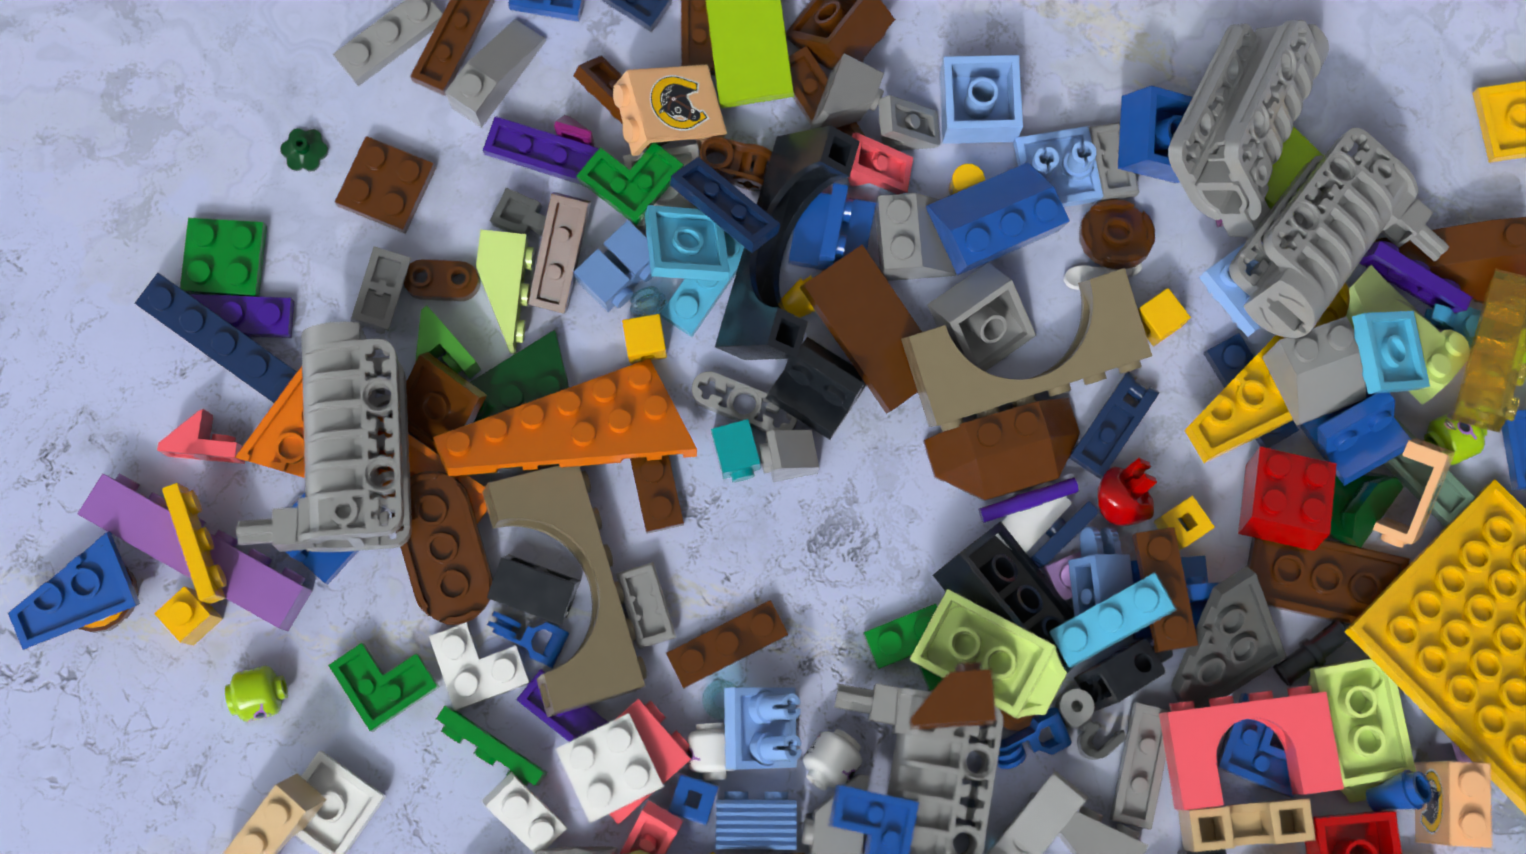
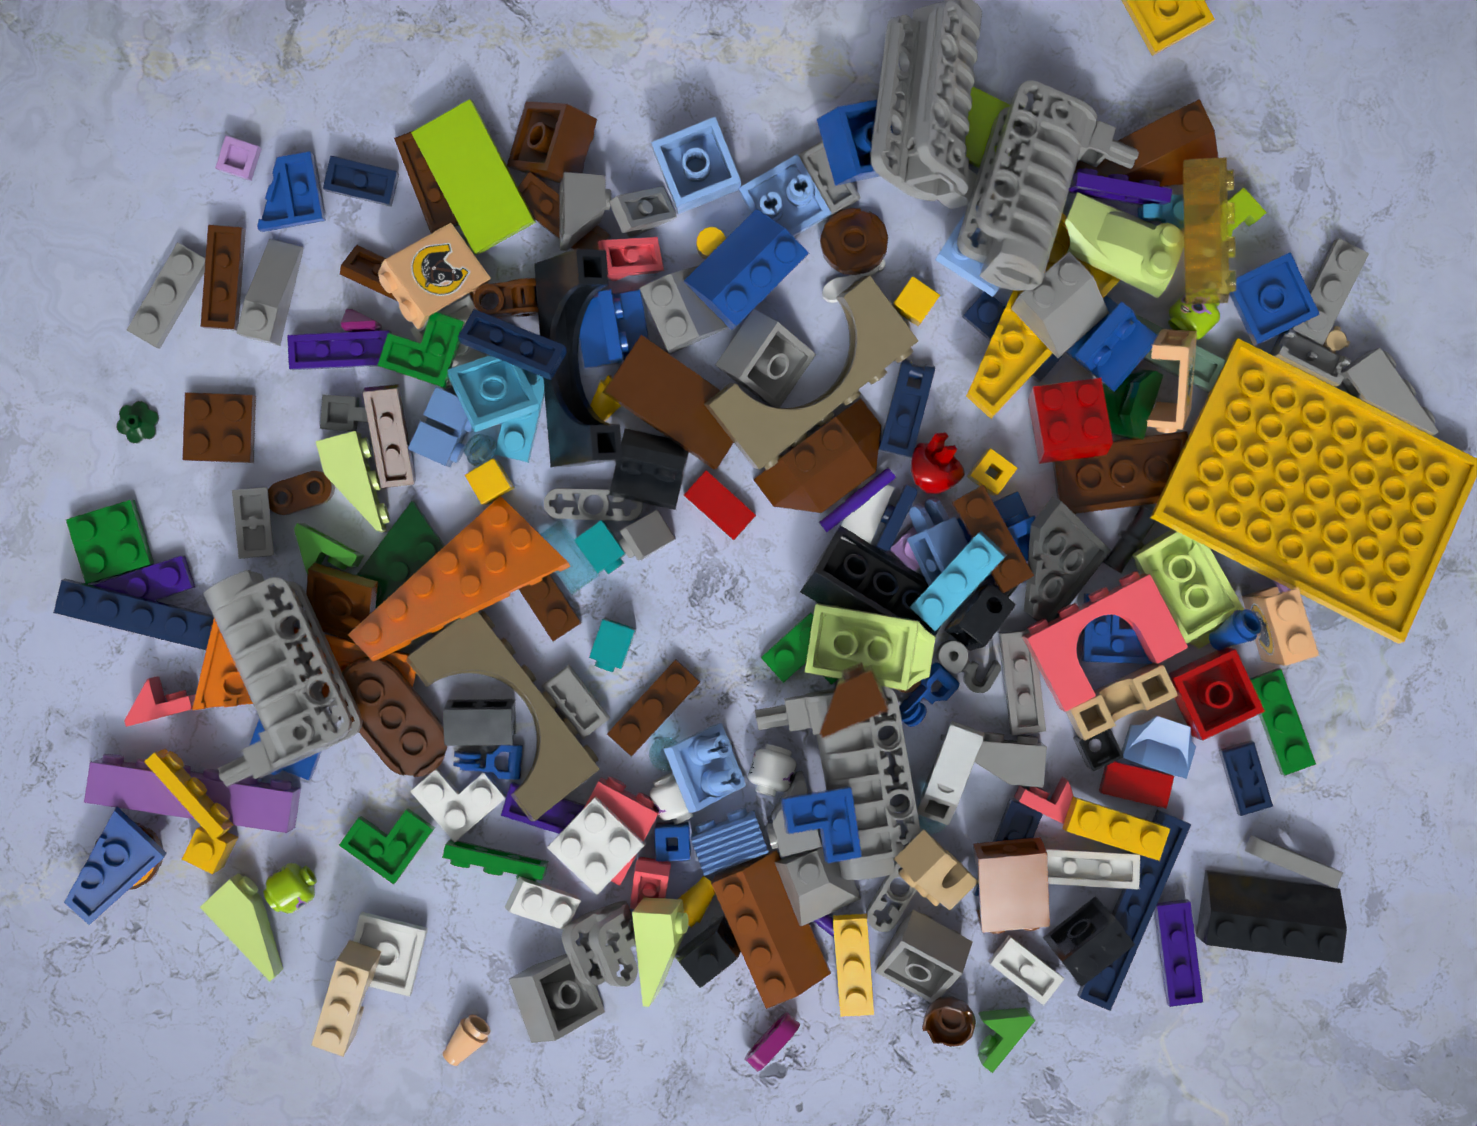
camera: 15 degrees left, 10 degrees up
(191, 708) = (244, 920): none -> yellowish green slope
(704, 468) = (581, 570): none -> clear light blue tile
(708, 557) = (612, 645): none -> teal brick
(878, 454) = (719, 505): none -> red tile
(1390, 351) = (1115, 270): medium azure plate -> none

